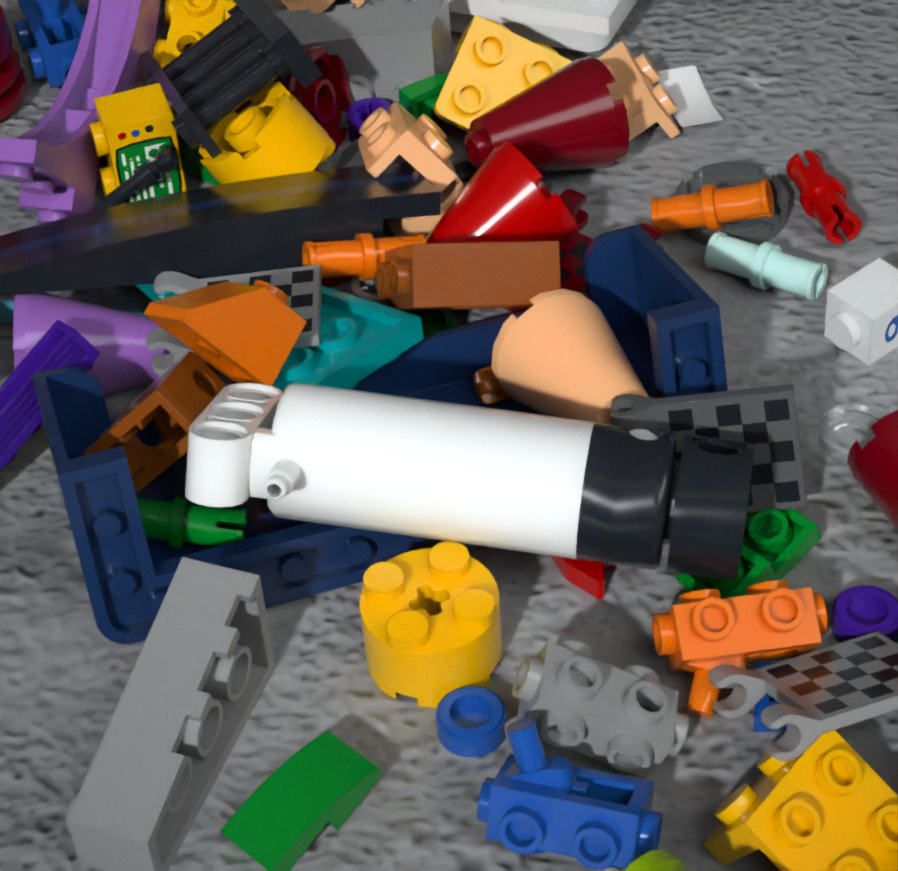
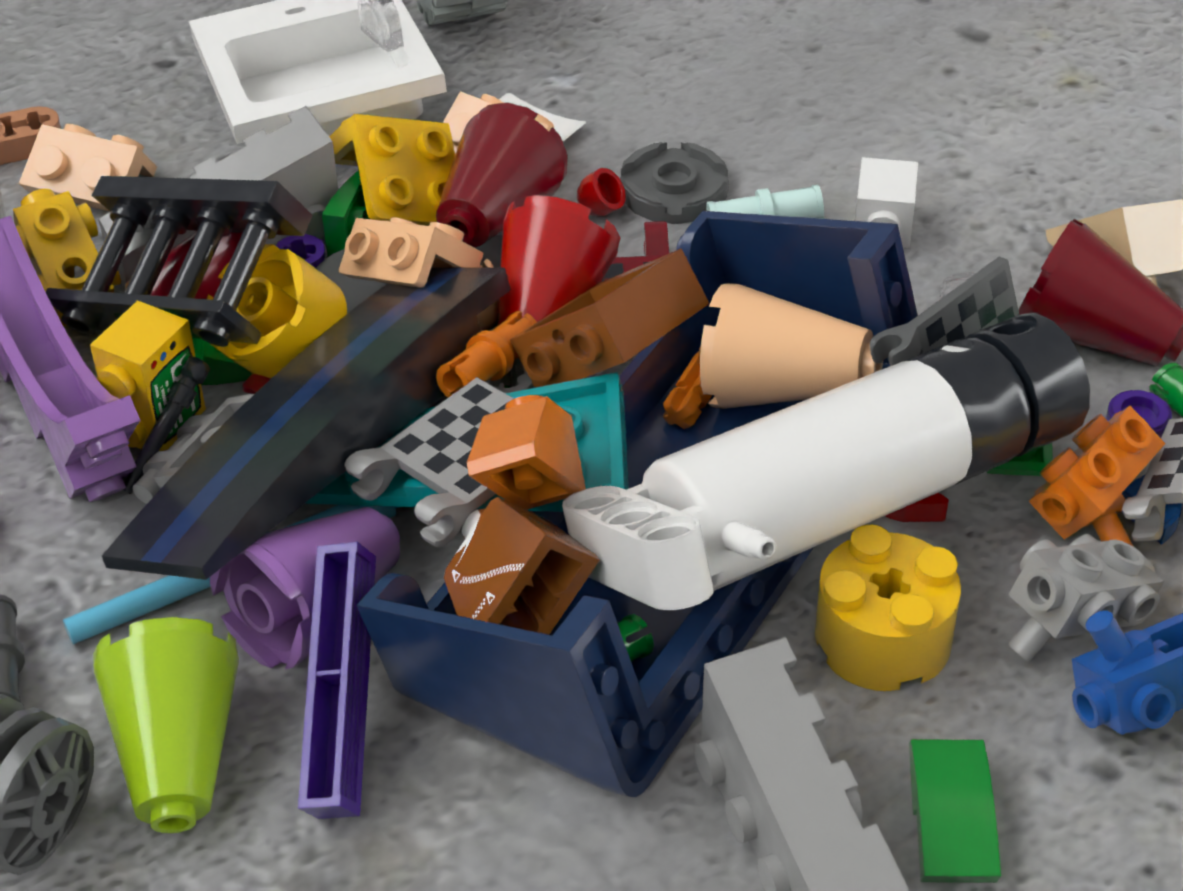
camera: 45 degrees left, 0 degrees up
(471, 721) = (982, 665): blue tile -> none
(658, 178) = (601, 192): none -> red hinge
(713, 207) = (688, 183): orange pin -> none
(823, 197) = (741, 141): red pin -> none

